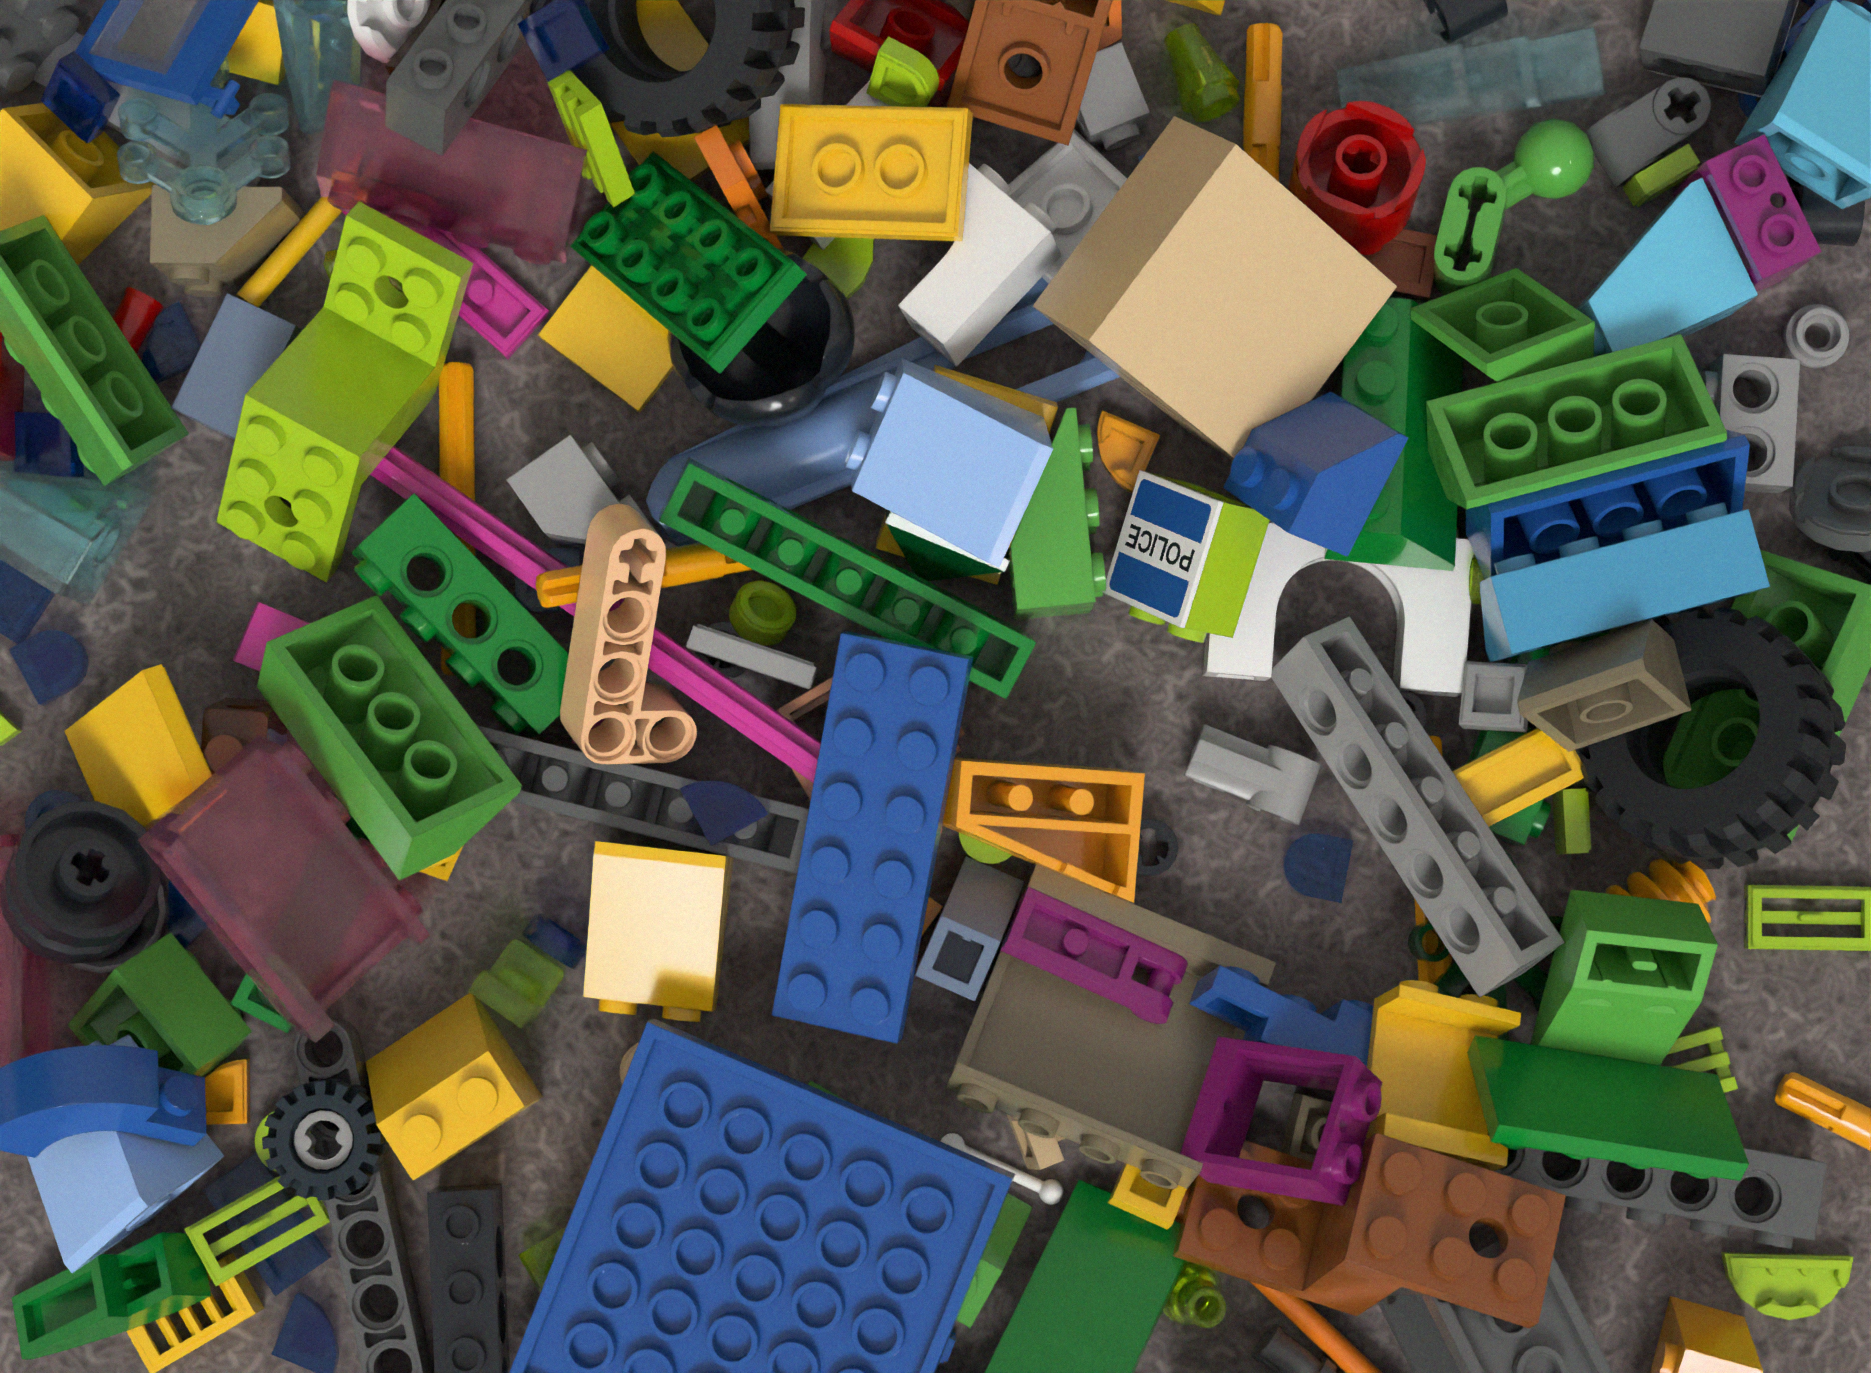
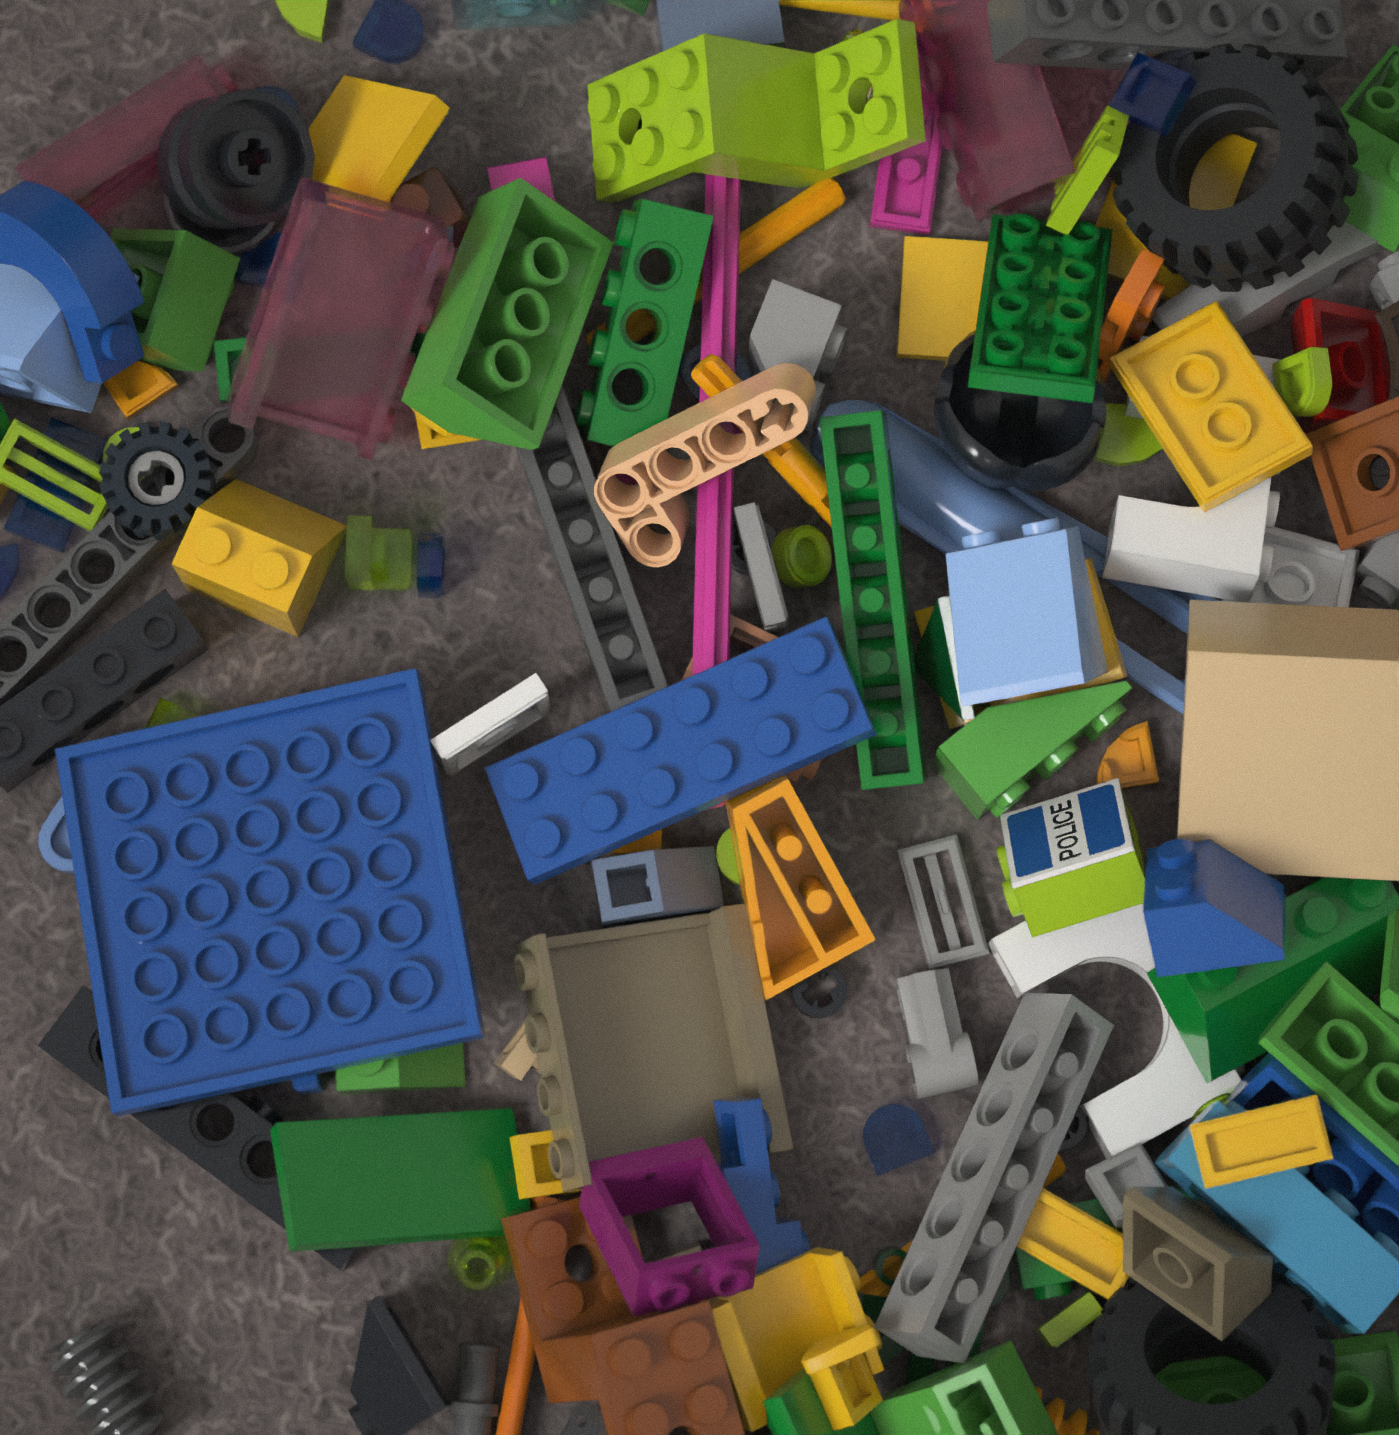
camera: 50 degrees right, 5 degrees down
(656, 929) = (494, 631): slope -> none
(722, 808) = (624, 619): clear blue tile -> none
(736, 984) = (492, 725): none -> white tile
(1049, 1191) = (487, 1092): white hinge -> none
(1094, 955) = (702, 998): magenta plate -> none
(1192, 707) = (956, 953): none -> light grey tile
(1506, 1052) = (843, 1375): none -> yellow tile
(1553, 564) = (1261, 1141): none -> yellow tile

